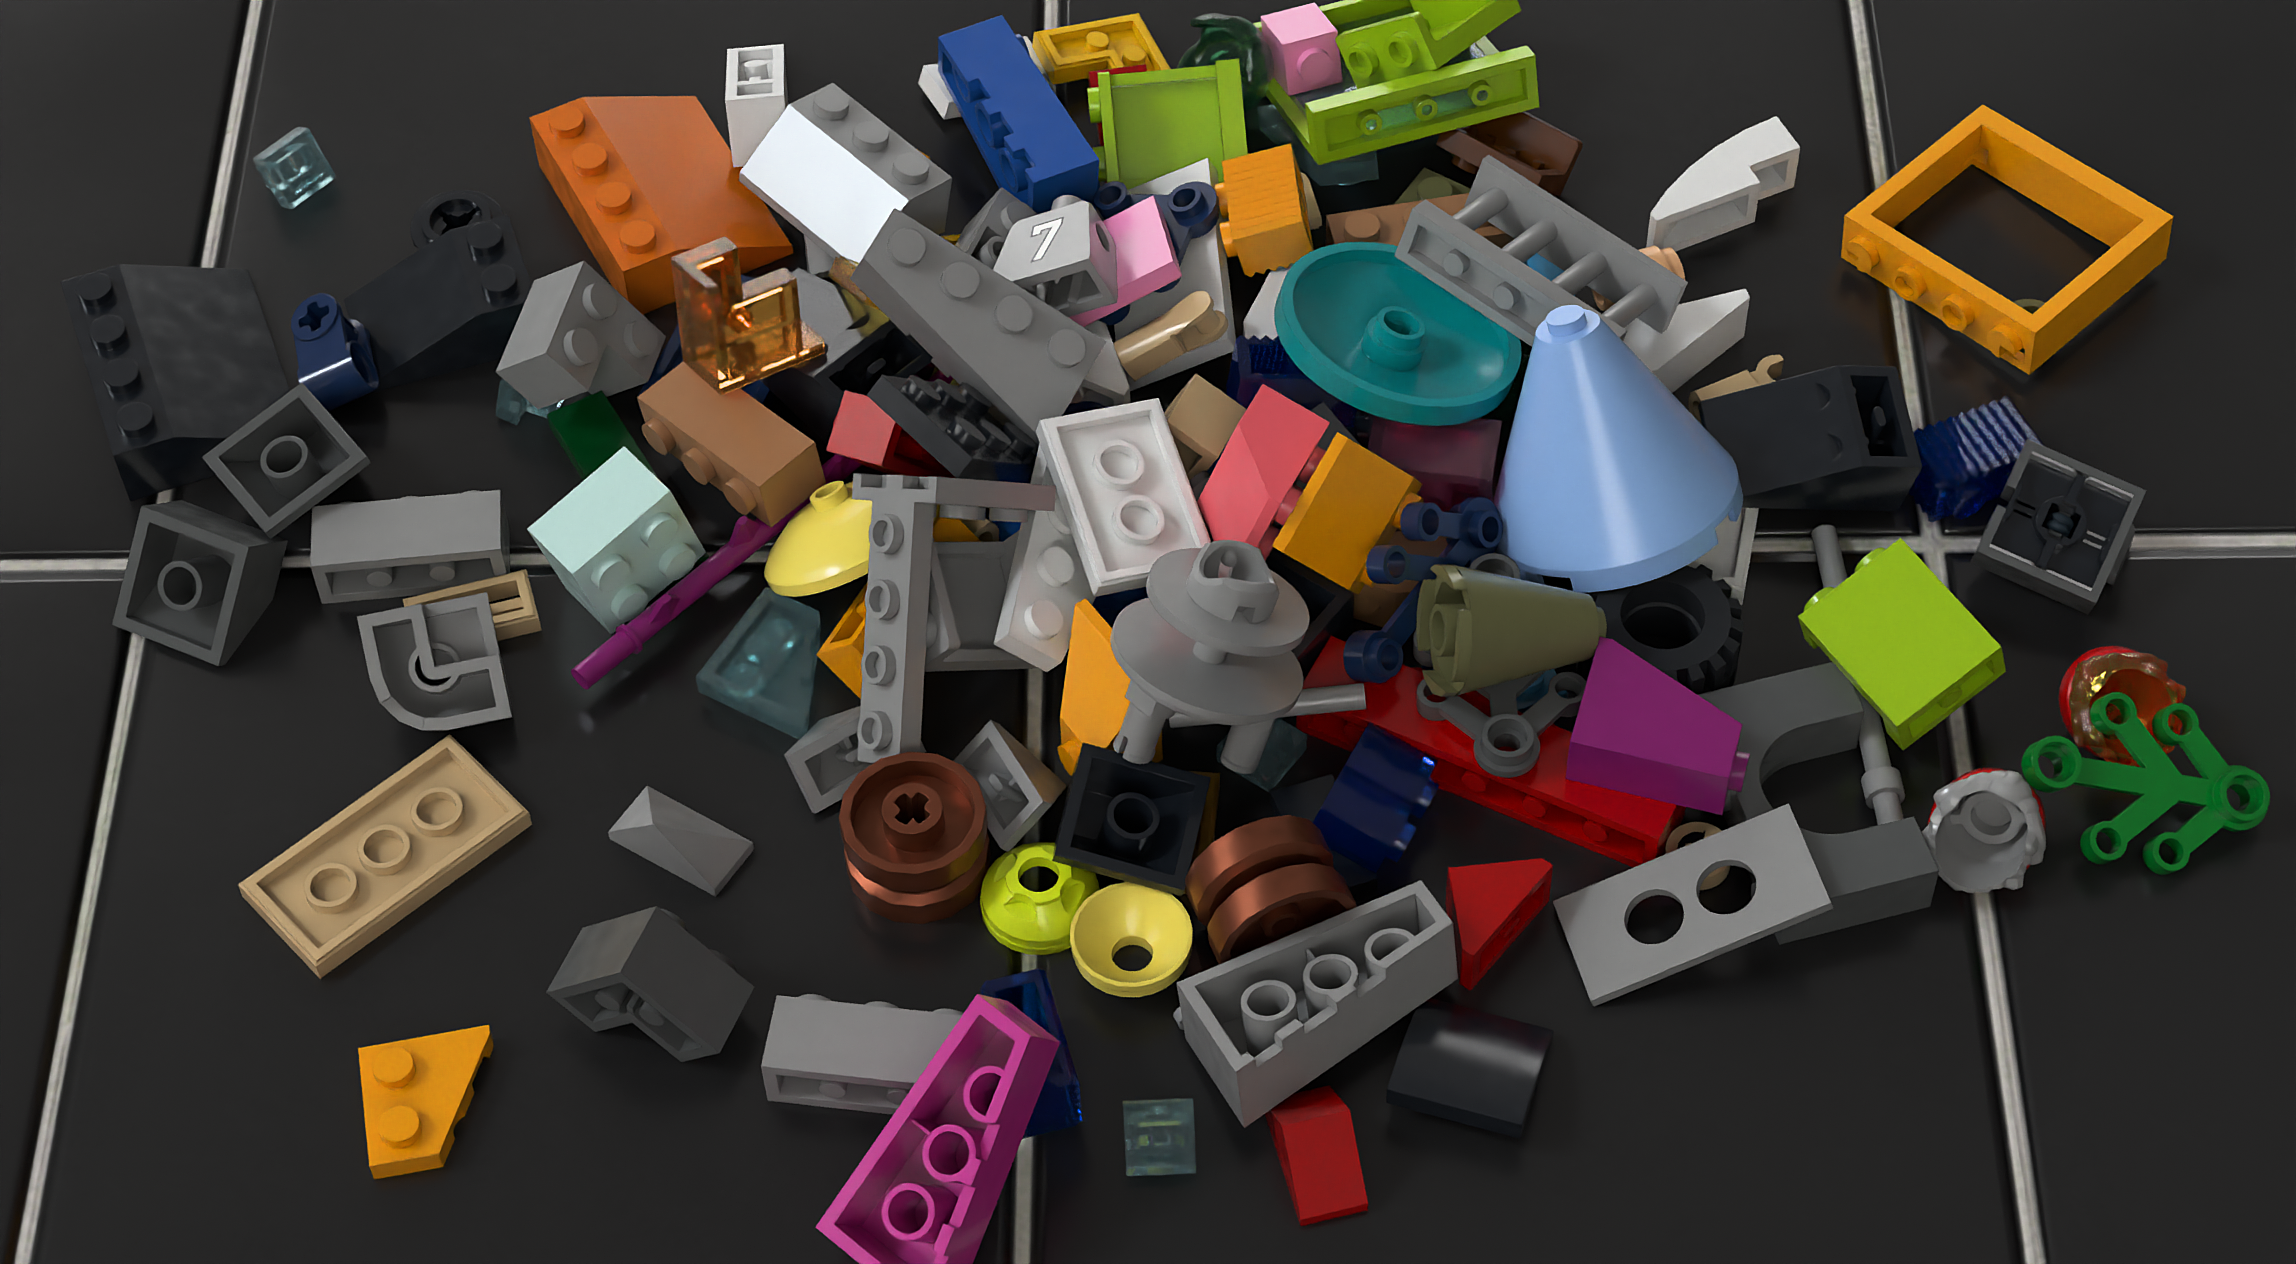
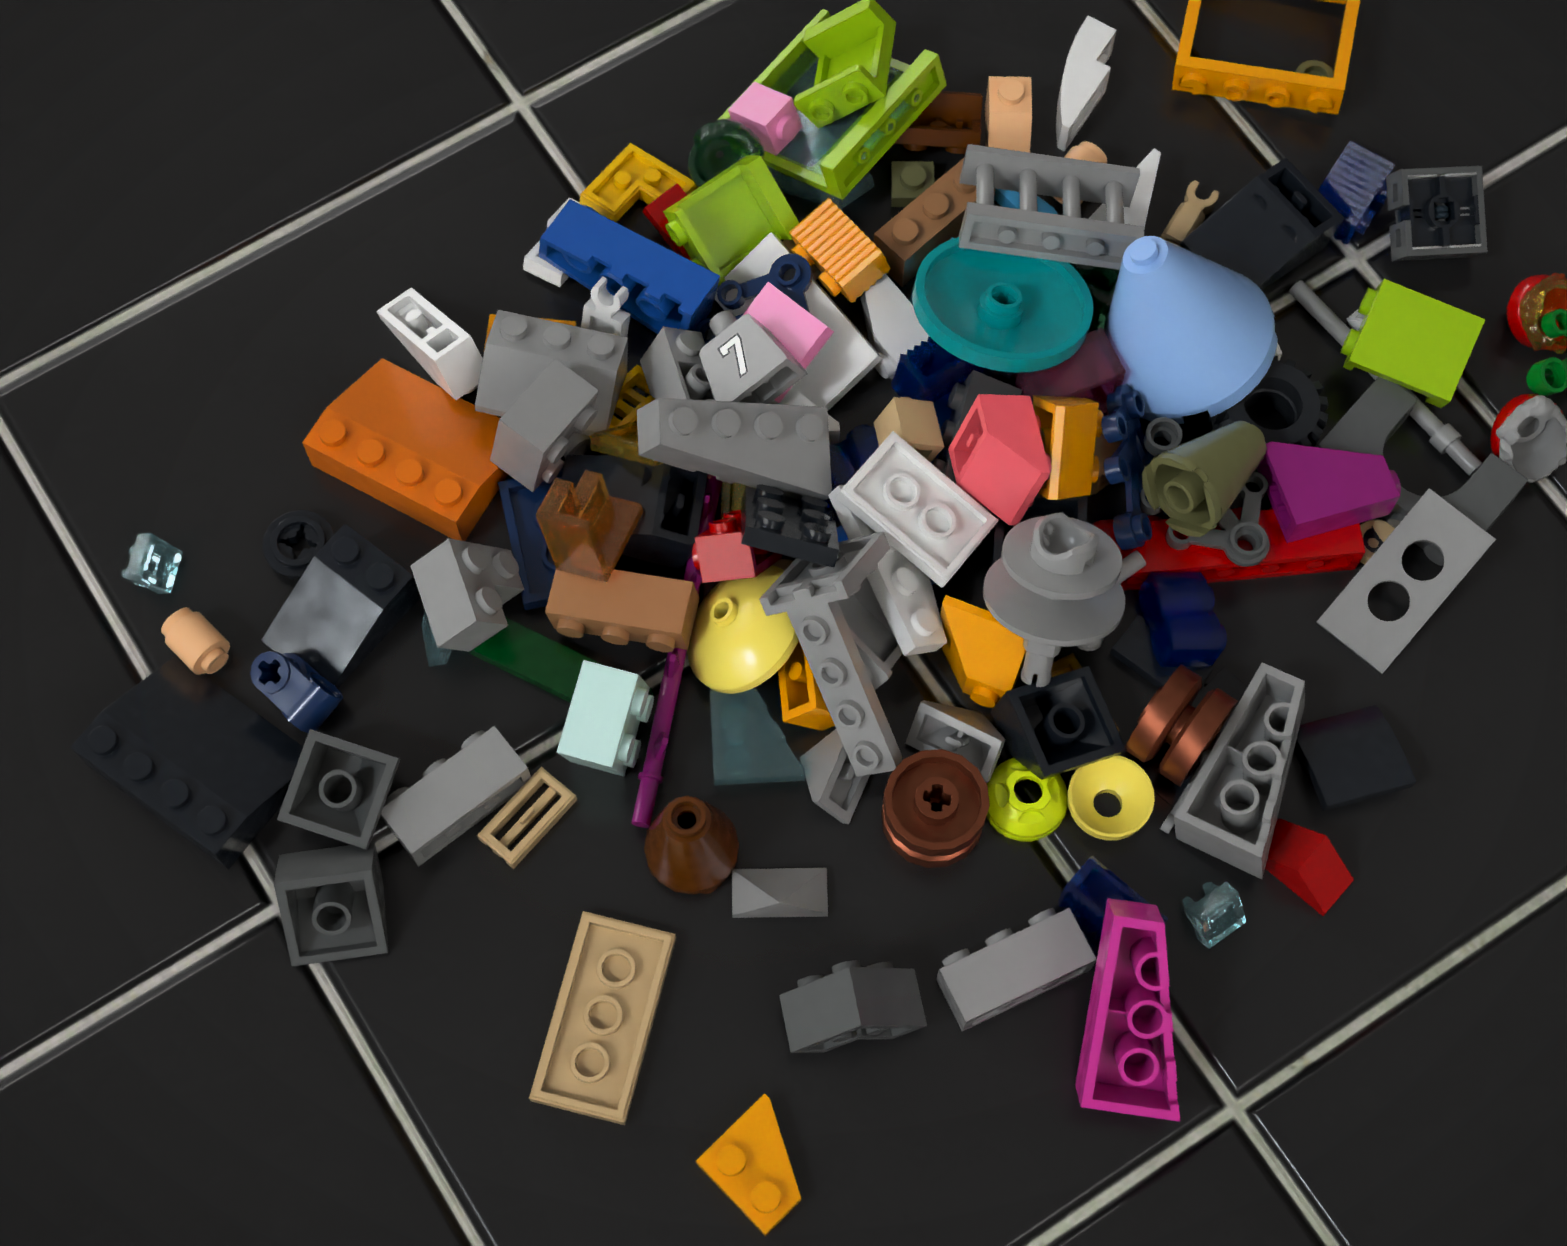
camera: 35 degrees left, 15 degrees up
(274, 261) = (195, 641): none -> light nougat brick
(437, 663) = (548, 870): light grey brick -> none
(615, 718) = (691, 846): none -> reddish brown cone
(784, 203) = (539, 423): none -> light grey brick
(959, 157) = (603, 310): none -> white plate
(1178, 331) = (840, 372): tan bar -> none
(1491, 909) = (1296, 649): red slope -> none
(1603, 175) = (1008, 113): none -> light nougat slope

